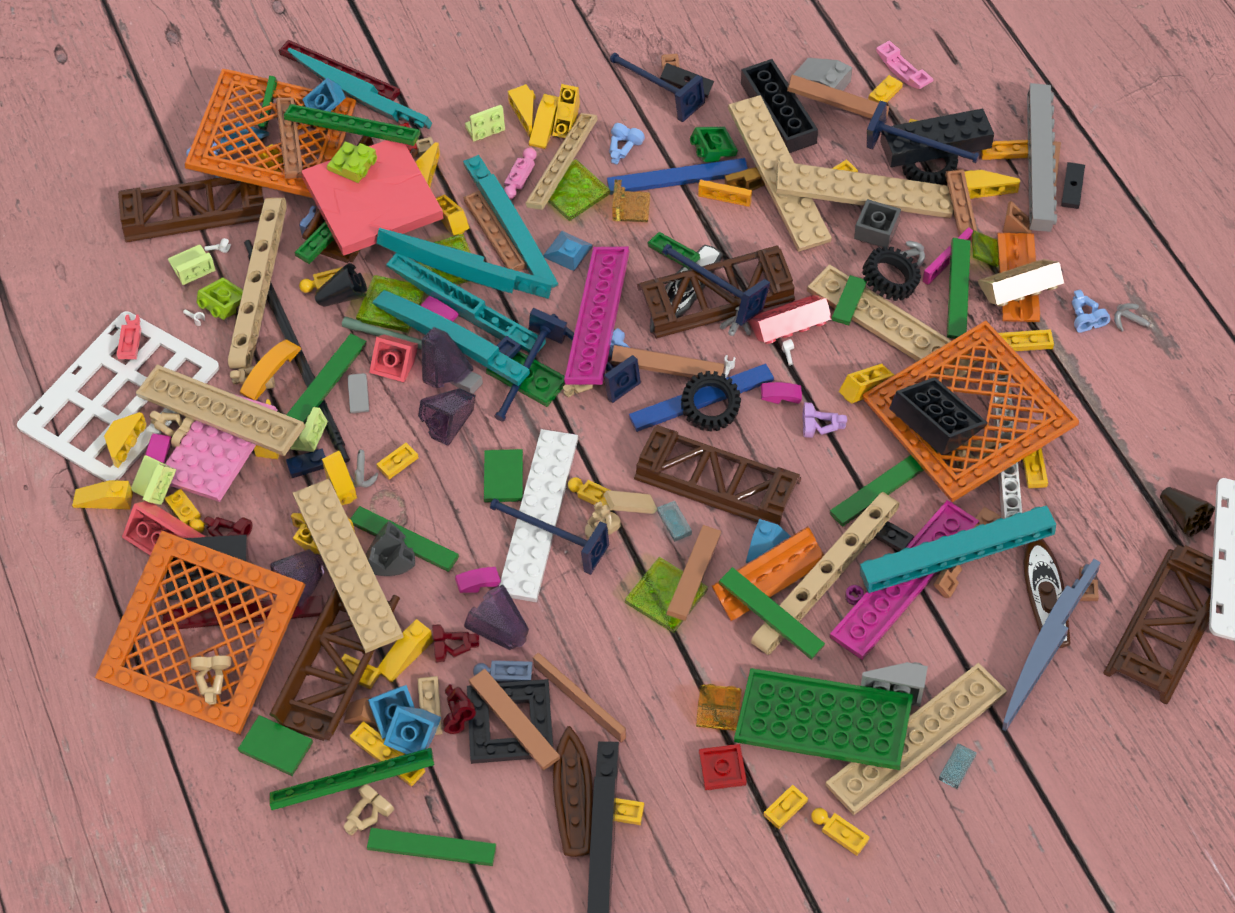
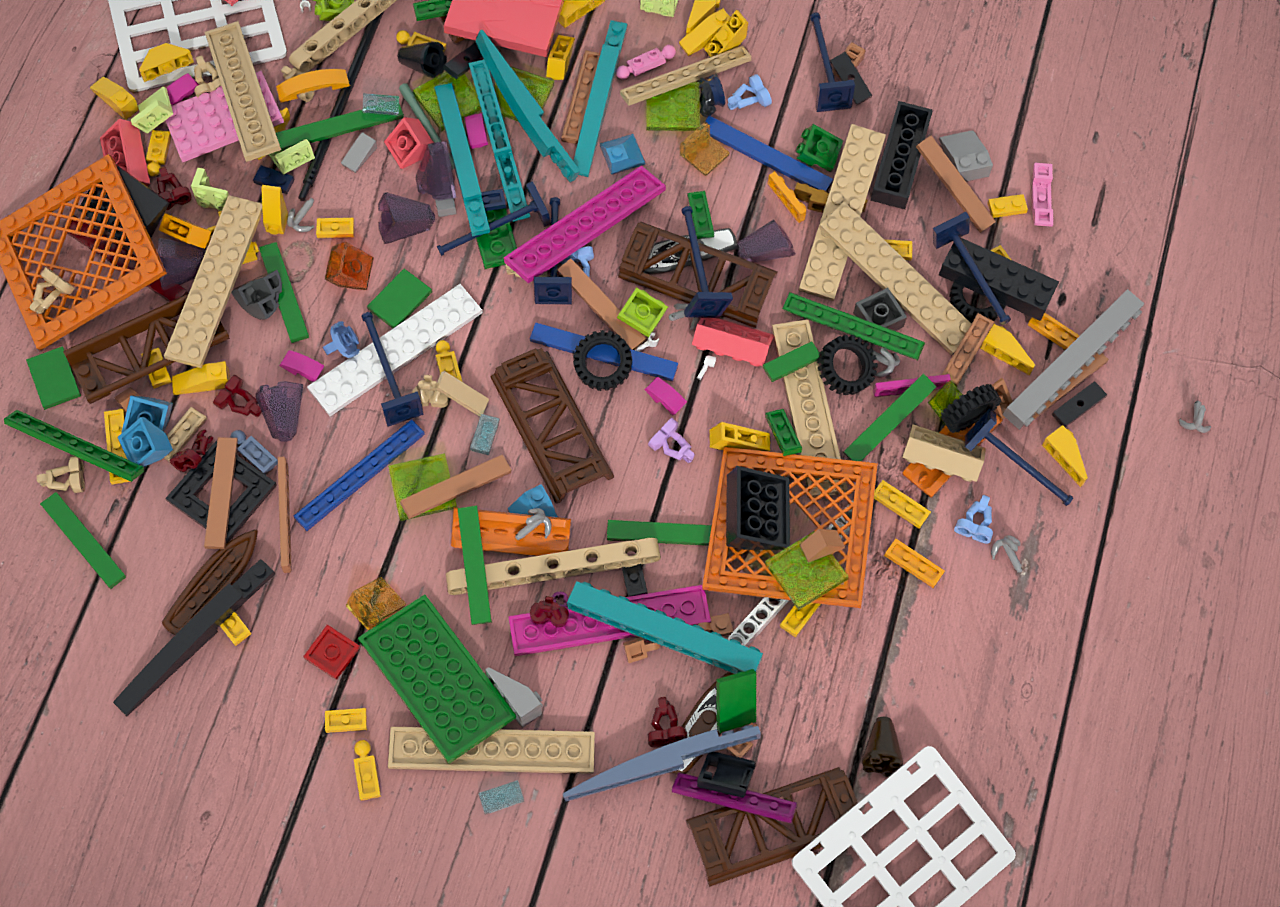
camera: 35 degrees right, 10 degrees up
(270, 509) = (206, 195): none -> yellowish green bracket
(280, 547) = (185, 231): none -> light orange brick
(343, 343) = (380, 104): none -> clear light blue plate
(378, 266) = (460, 64): none -> black tile
(439, 481) = (349, 267): none -> clear orange slope
(494, 535) = (343, 339): none -> medium blue tile
(596, 159) = (711, 95): none -> piece
(606, 626) = (359, 475): none -> blue tile
(705, 345) = (642, 312): none -> lime plate
(747, 233) = (766, 244): none -> clear purple slope
(788, 539) = (533, 521): none -> light grey piece
(863, 602) = (549, 611): none -> dark red piece
(868, 242) = (854, 326): none -> green tile
(894, 352) = (783, 432): none -> green tile
(1011, 399) = (821, 544): none -> nougat slope
(1013, 233) = (970, 408): none -> black tyre
(1017, 426) = (805, 580): none -> clear neon green plate
(1030, 626) = (664, 737): none -> dark red piece
(1035, 243) = (982, 430): none -> dark blue tile
(1059, 554) = (736, 700): none -> green tile
(1075, 373) = (914, 563): none -> light orange plate
(1100, 223) = (1065, 451): none -> yellow slope
(1104, 613) = (731, 775): none -> black container
(1124, 625) = (752, 802): none -> magenta tile
(1161, 138) = (1199, 411): none -> light grey piece

